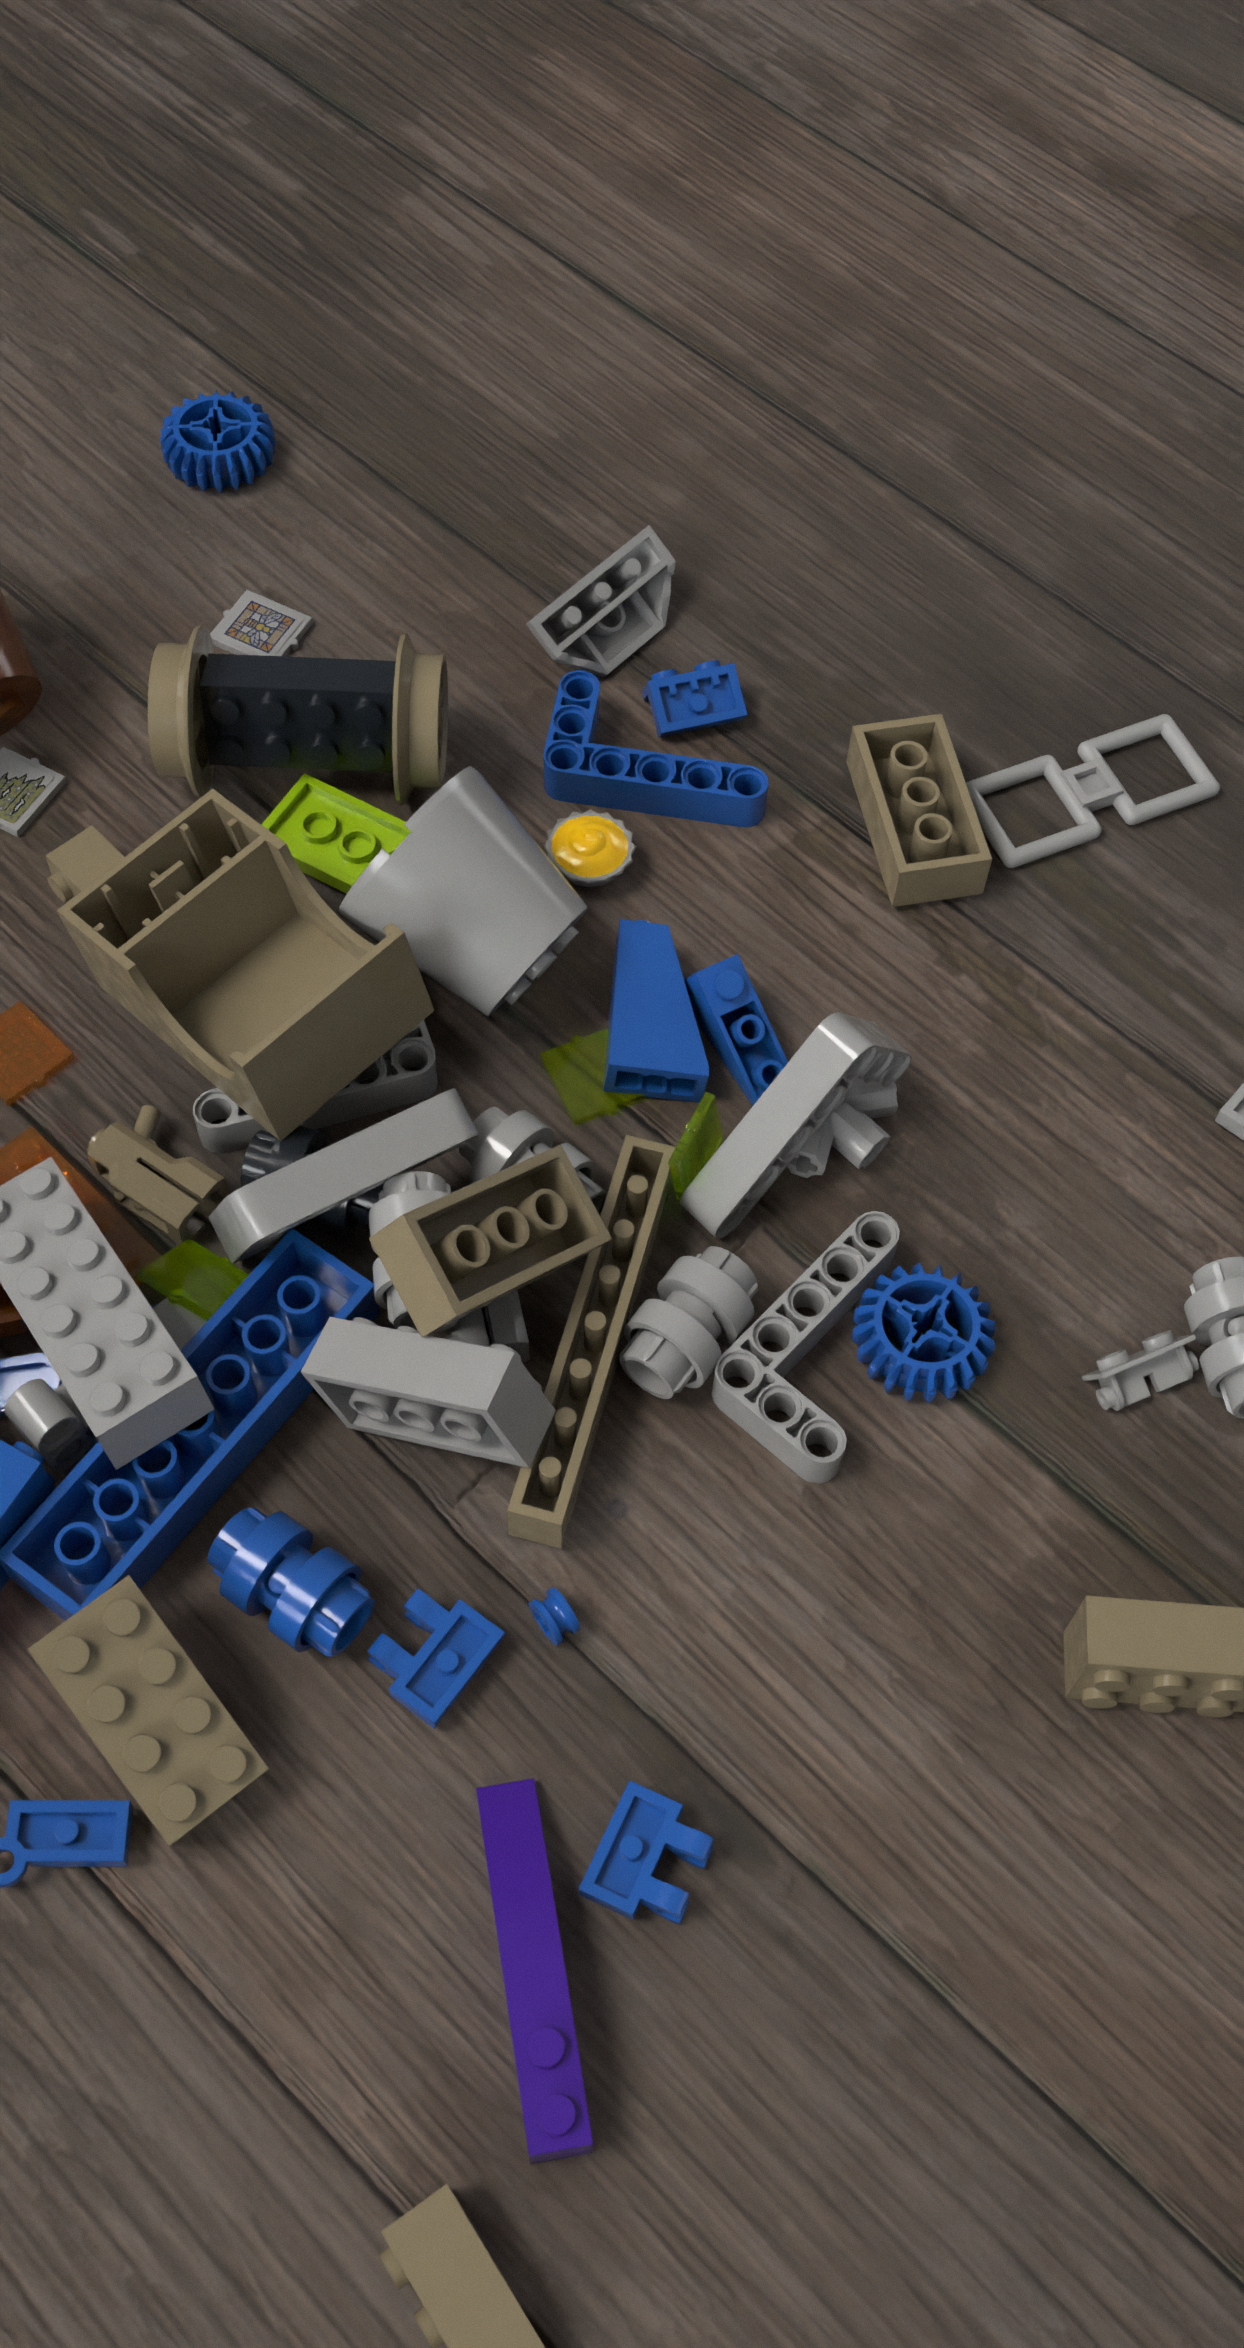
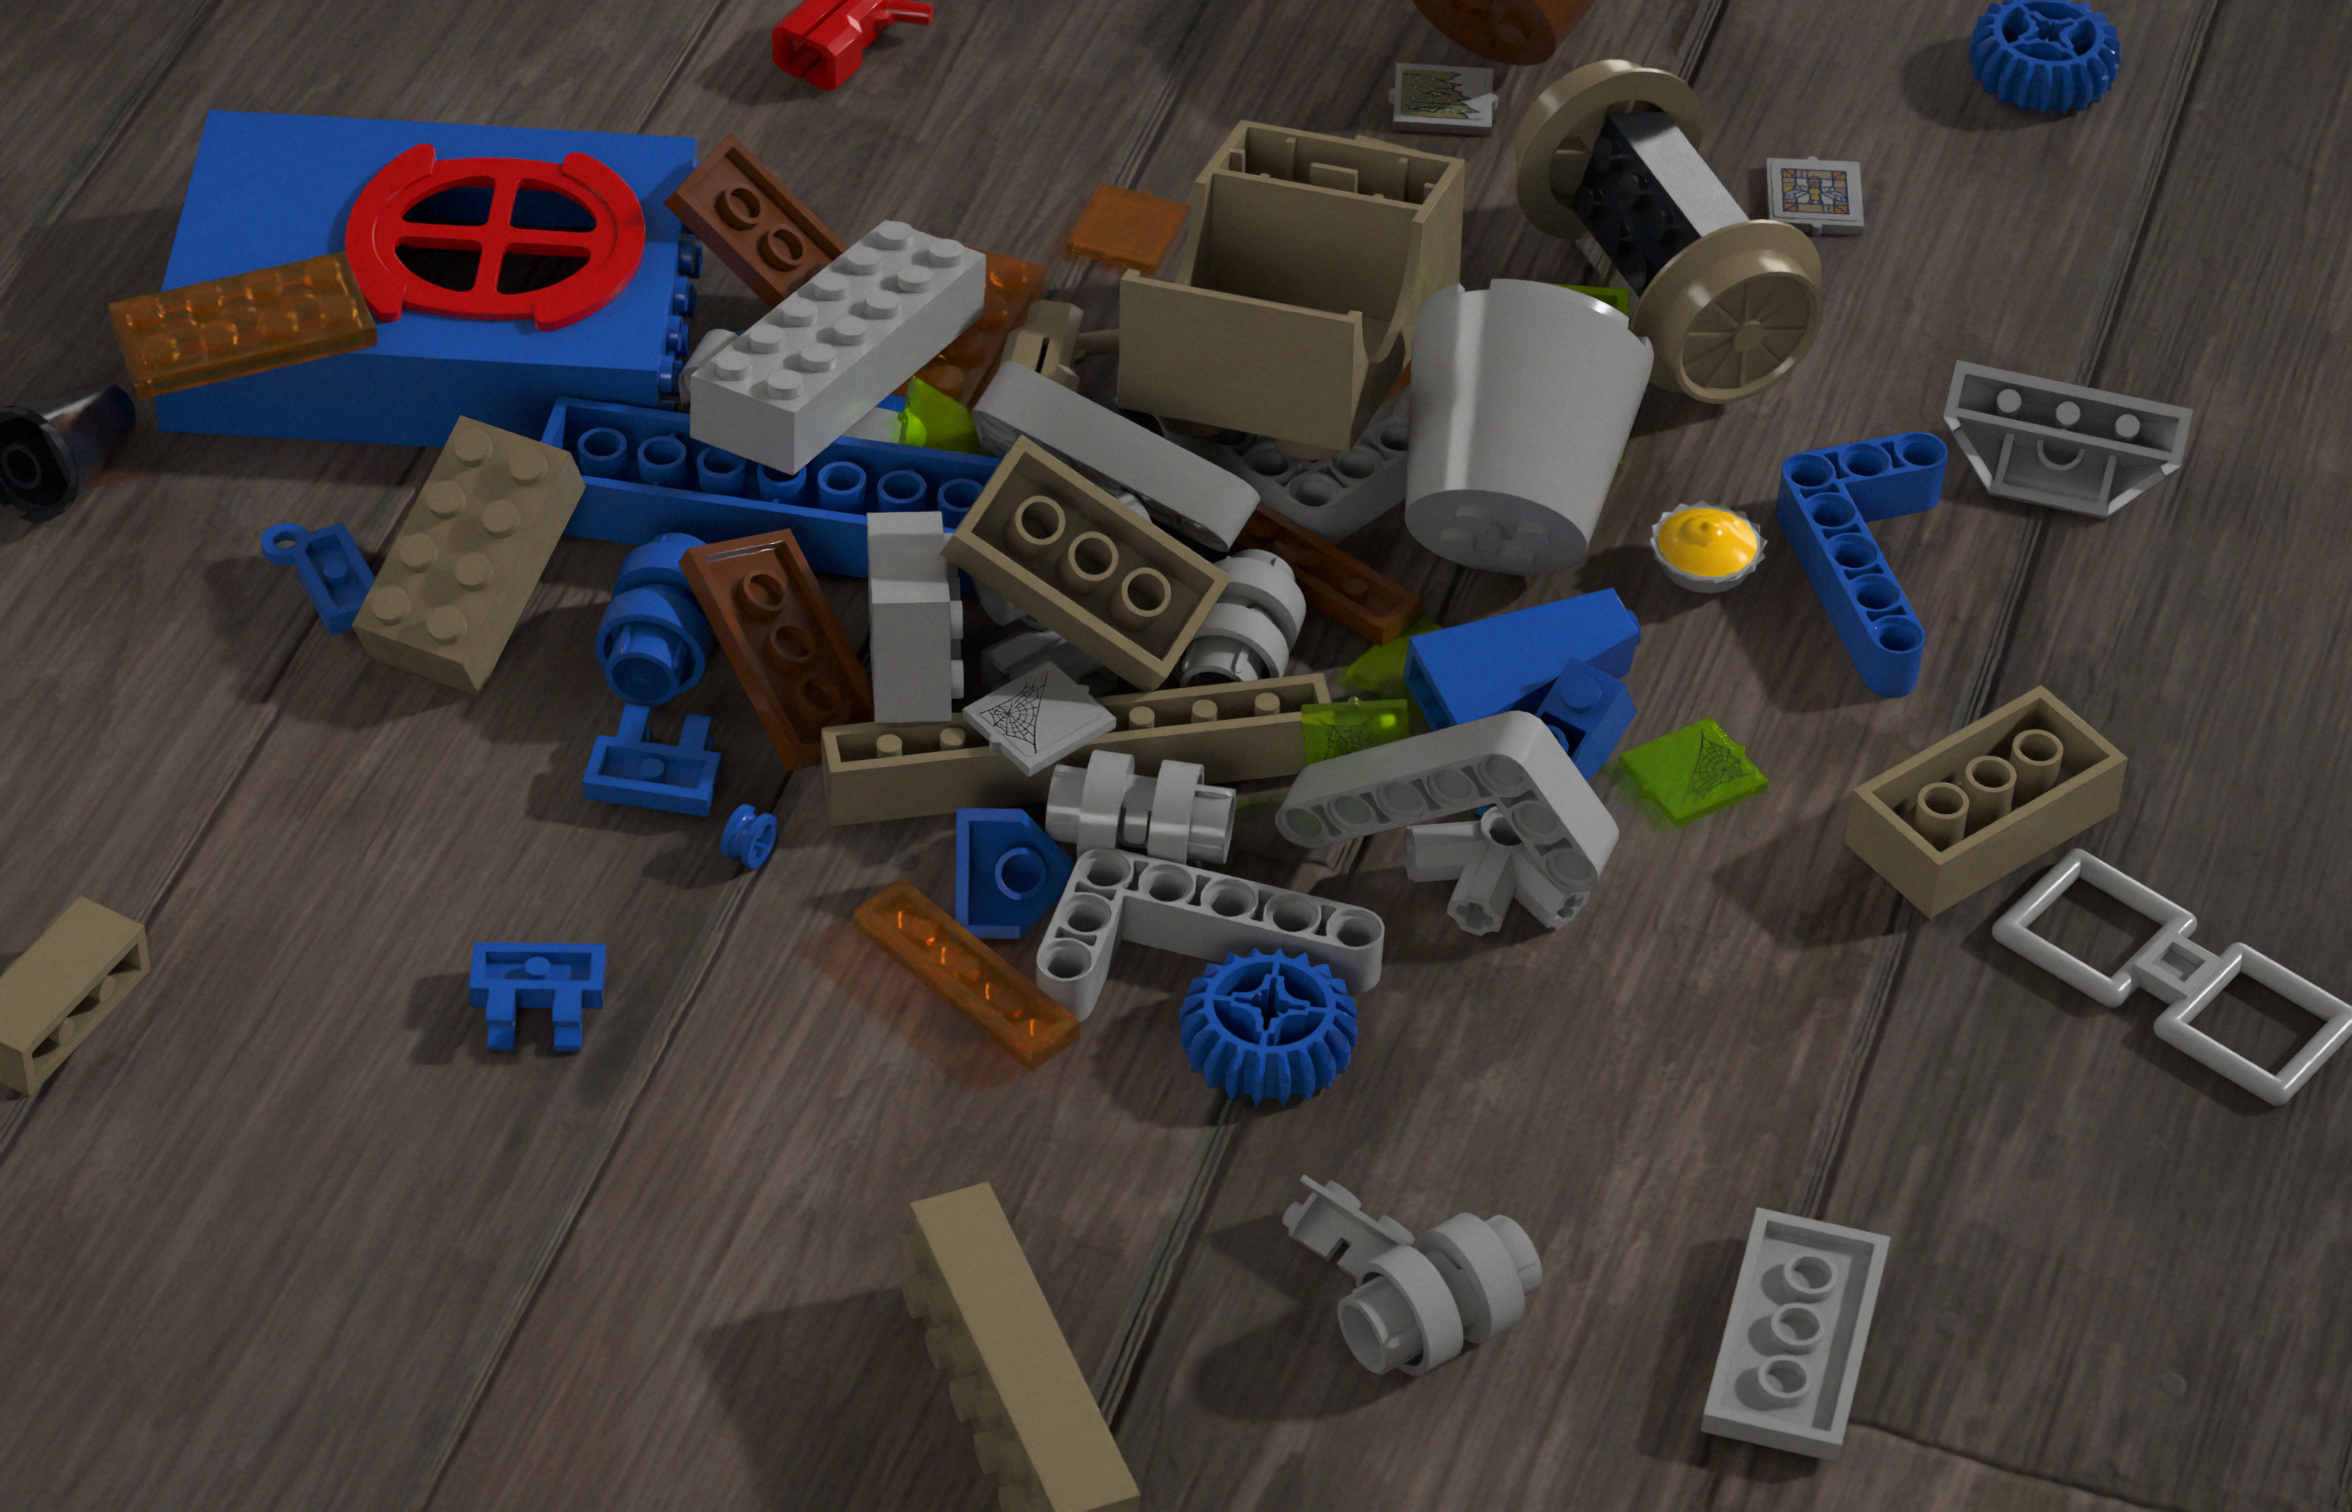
camera: 65 degrees right, 15 degrees down
(389, 1498) = (781, 640): none -> reddish brown plate
(498, 1083) = (1332, 578): none -> reddish brown plate
(534, 1974) = (367, 944): dark purple slope -> none
(582, 1346) = (1039, 718): none -> light grey piece
(690, 1455) = (1005, 872): none -> blue slope
(695, 698) = (2003, 567): blue bracket -> none
(774, 1517) = (967, 975): none -> clear orange plate
(782, 959) = (1693, 772): none -> clear neon green piece

